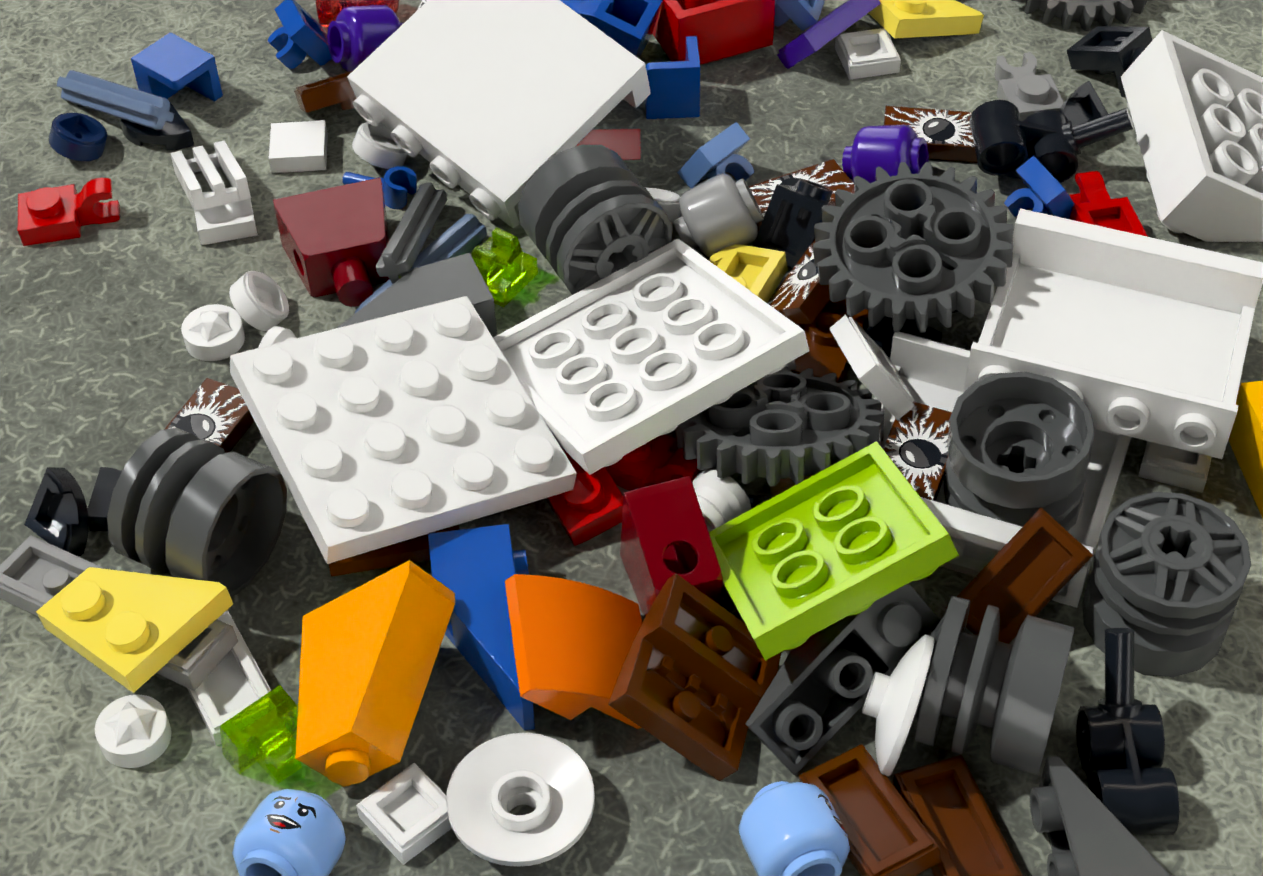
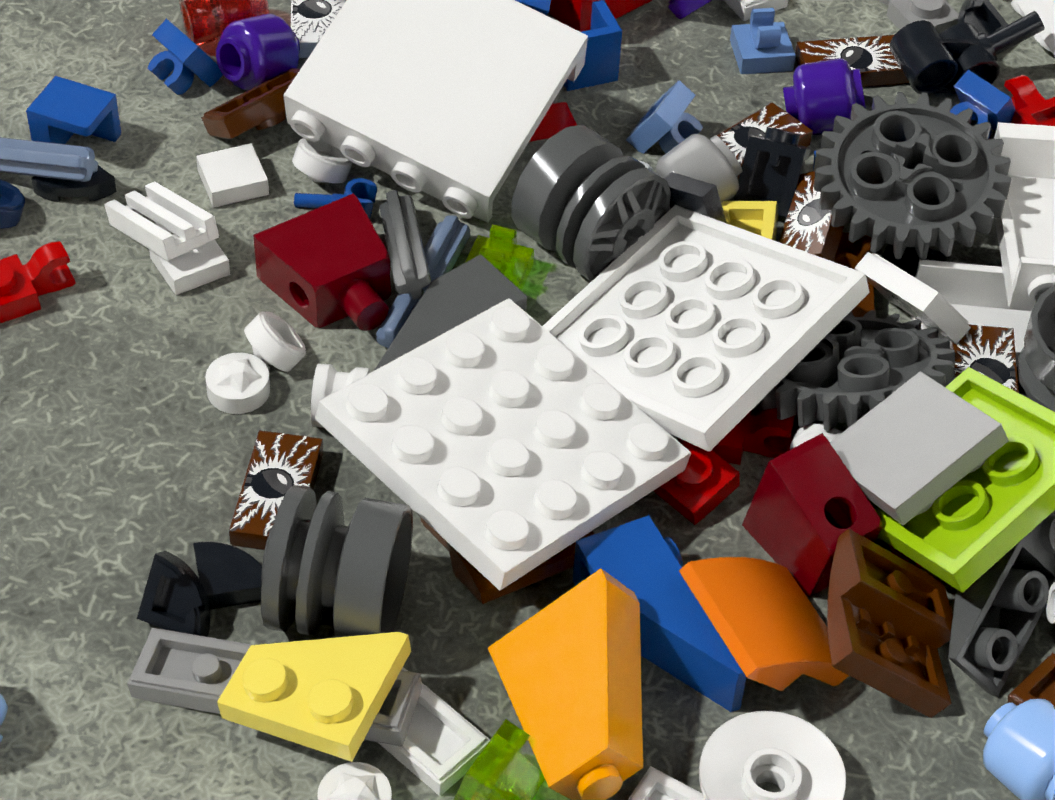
camera: 20 degrees left, 0 degrees up
(697, 234) = (695, 196): none -> black tile
(776, 509) = (917, 446): none -> tile
(852, 102) = (762, 44): none -> medium blue tile

